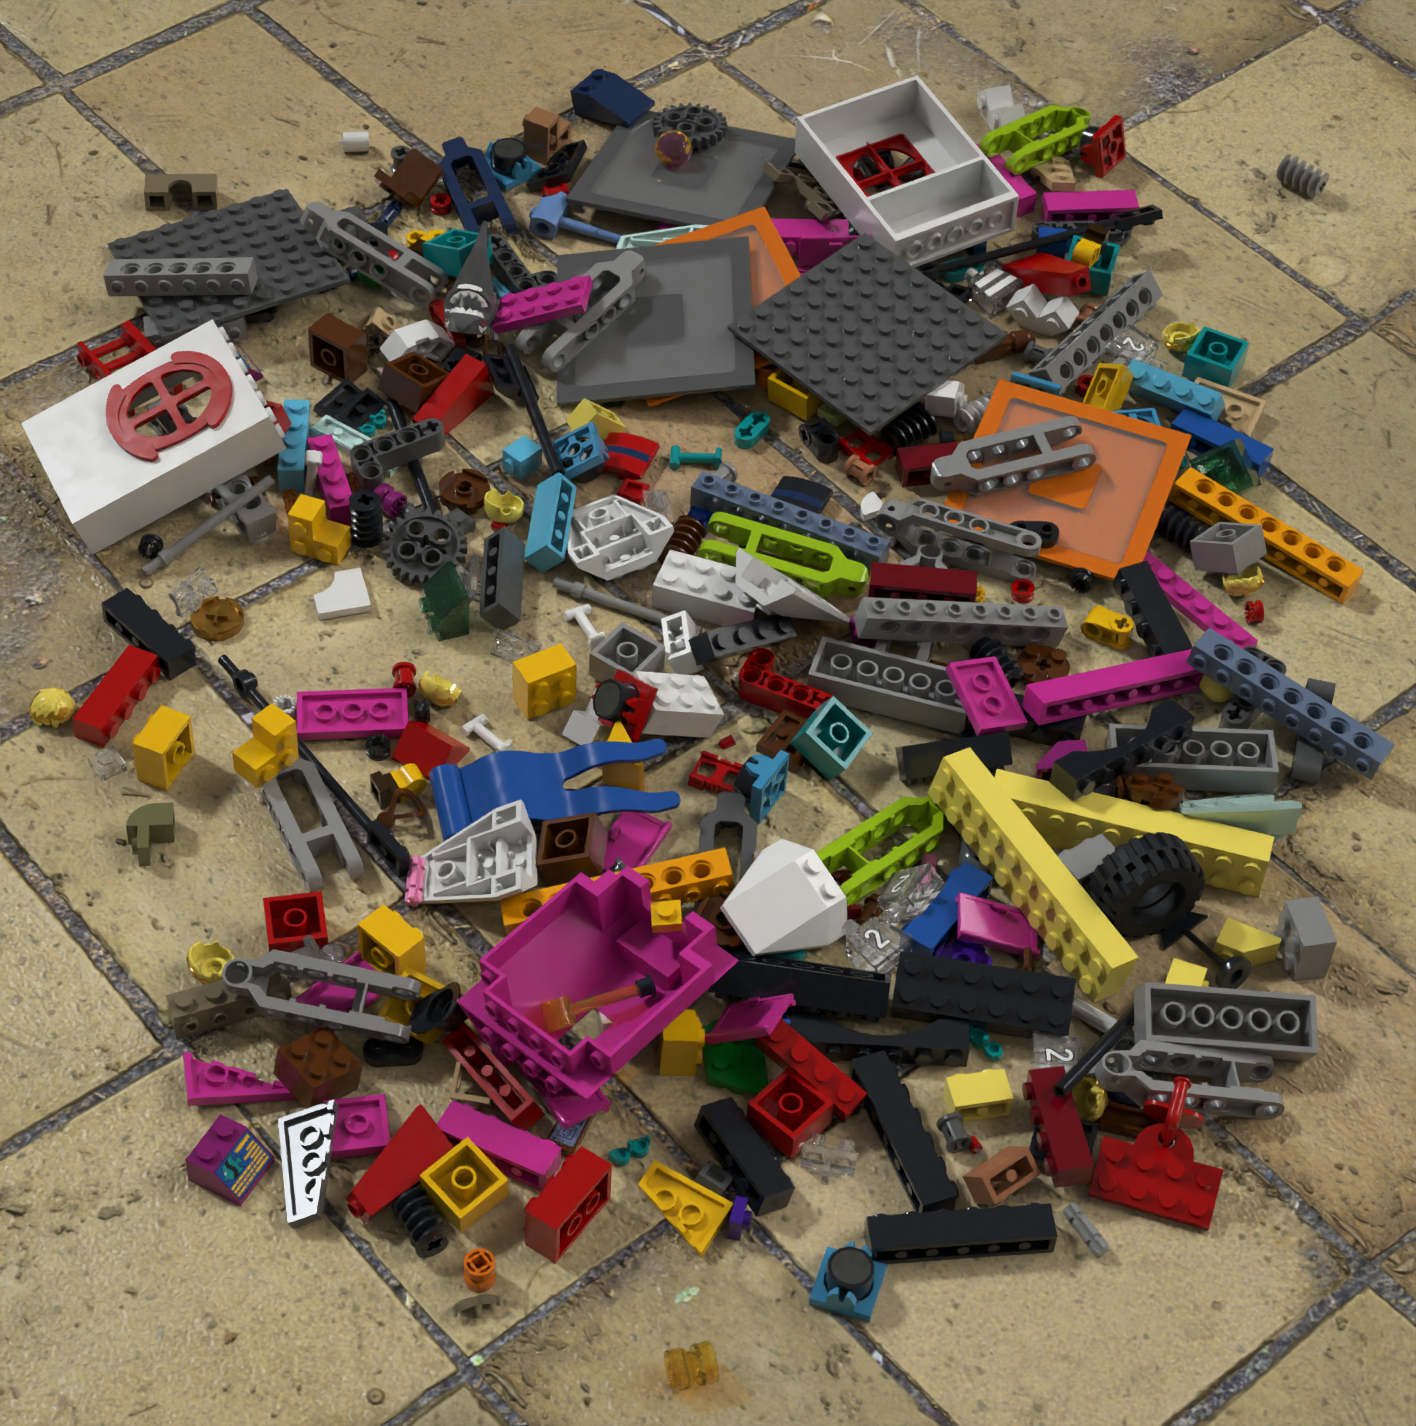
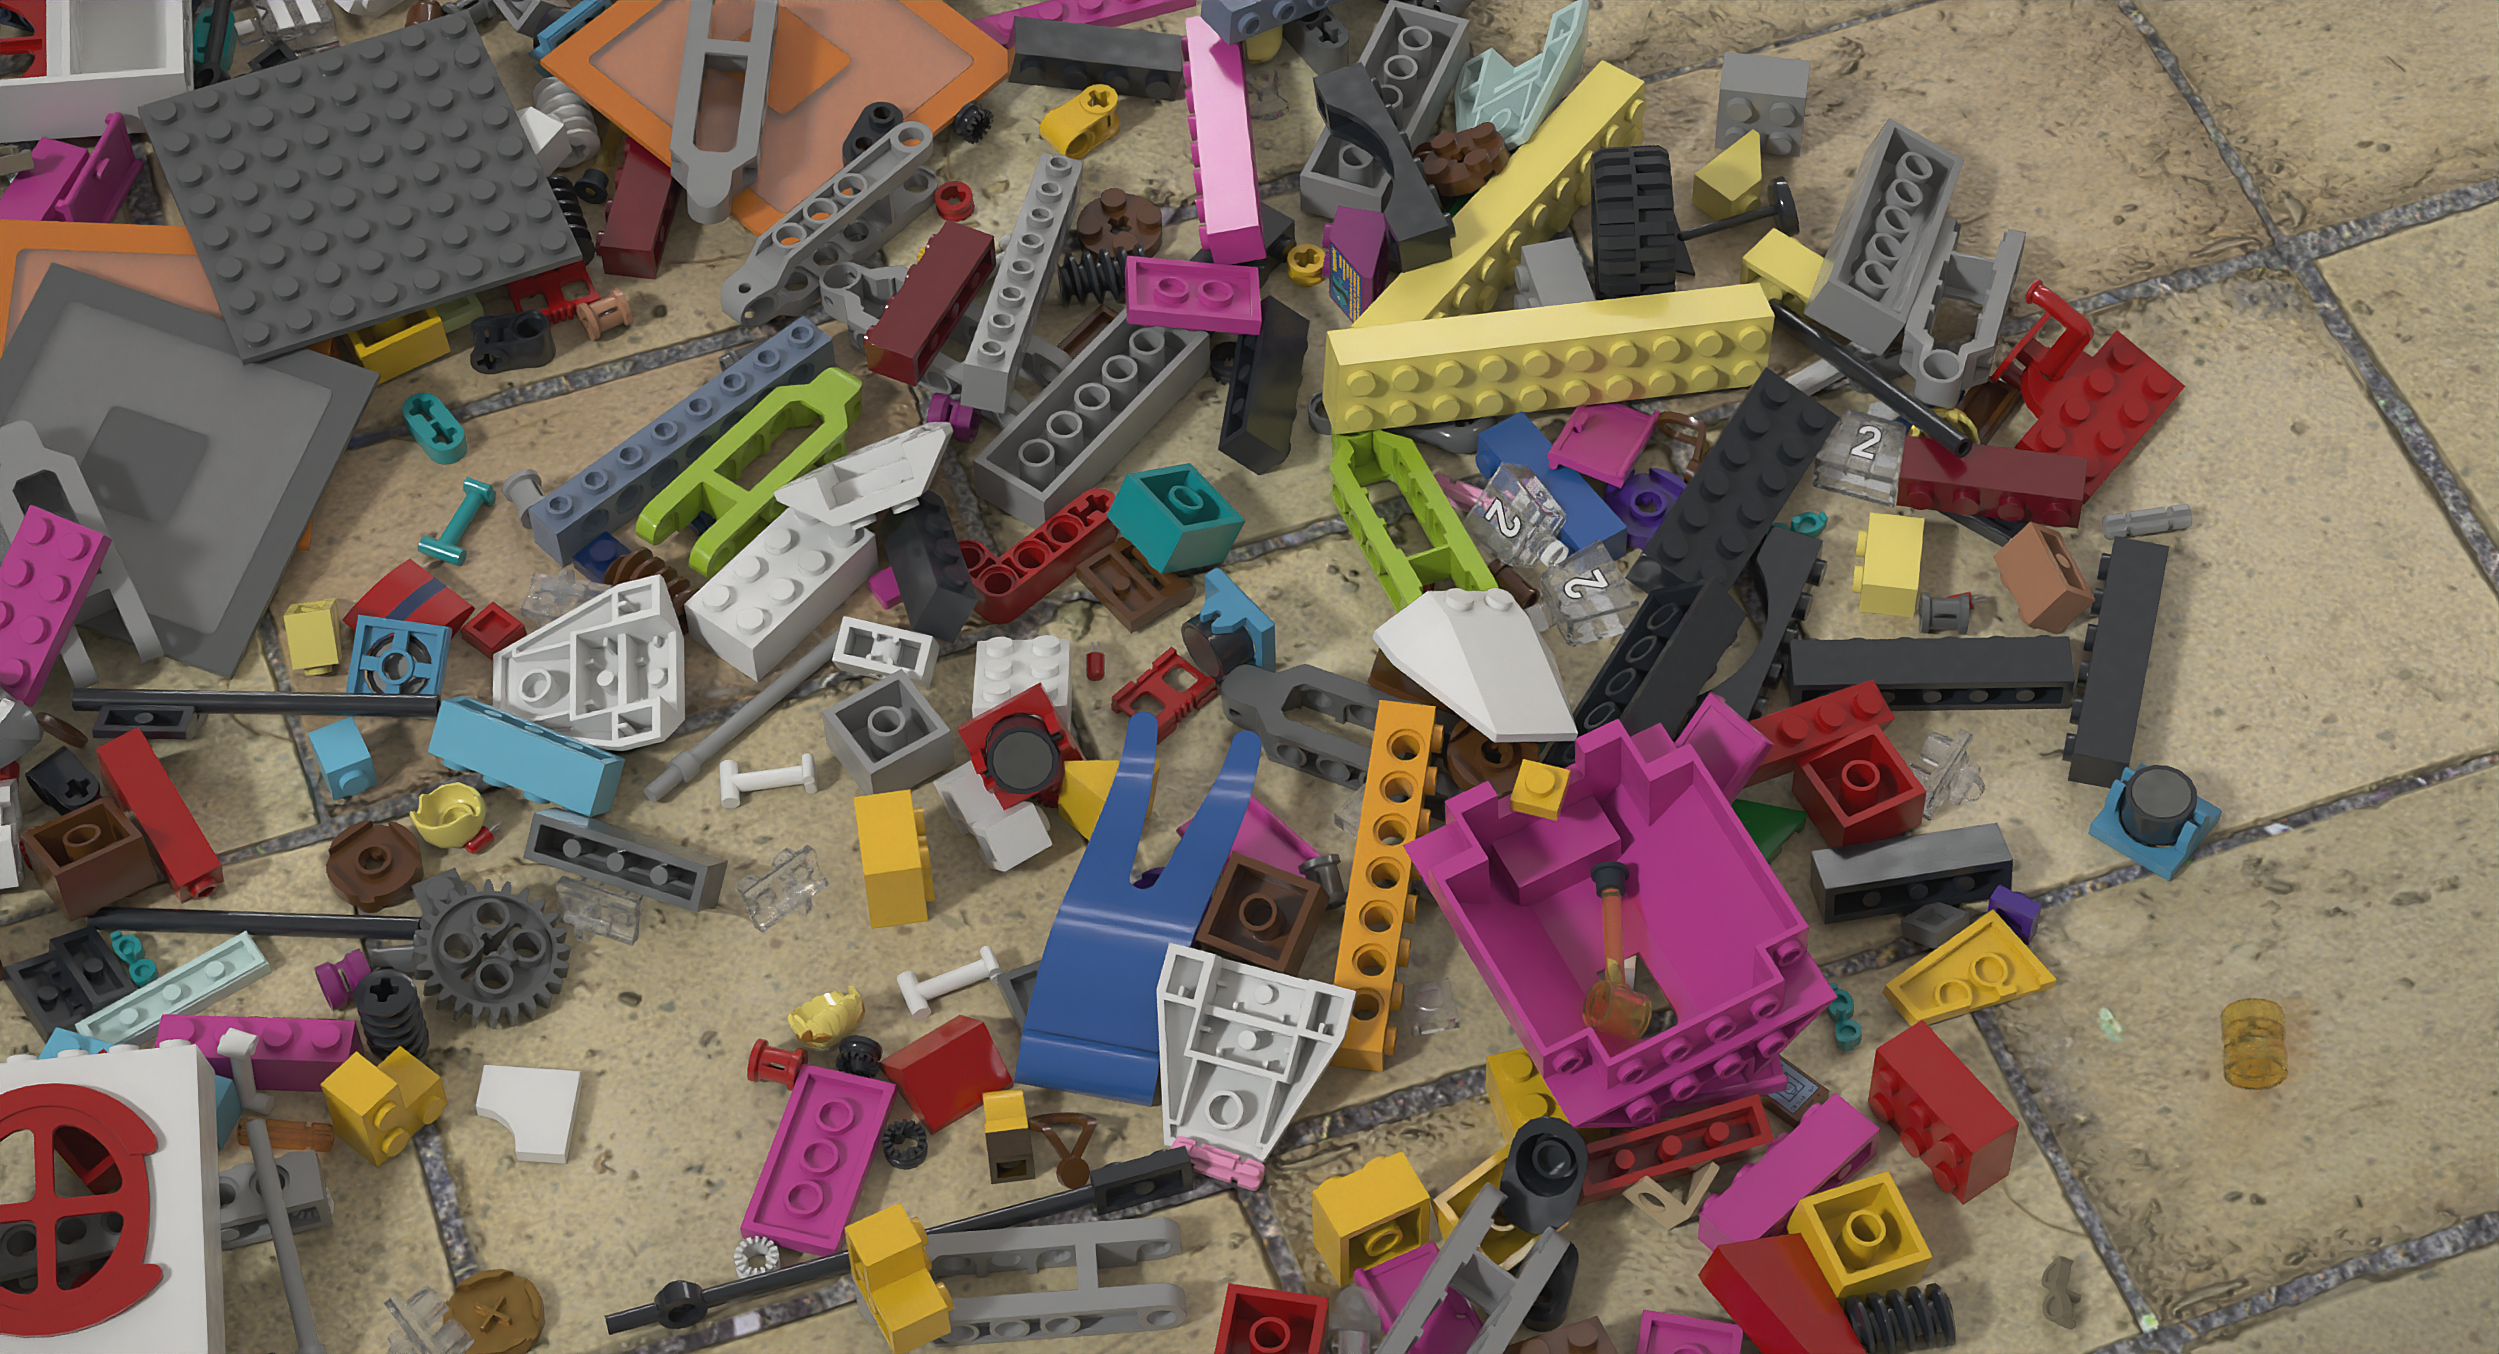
camera: 65 degrees left, 5 degrees up
(395, 449) = (249, 927): dark grey beam -> none
(446, 604) = (645, 950): clear green slope -> none
(479, 1270) = (2009, 1268): orange wheel -> none
(803, 493) = (621, 407): black slope -> none
(870, 506) = (686, 327): white tile -> none

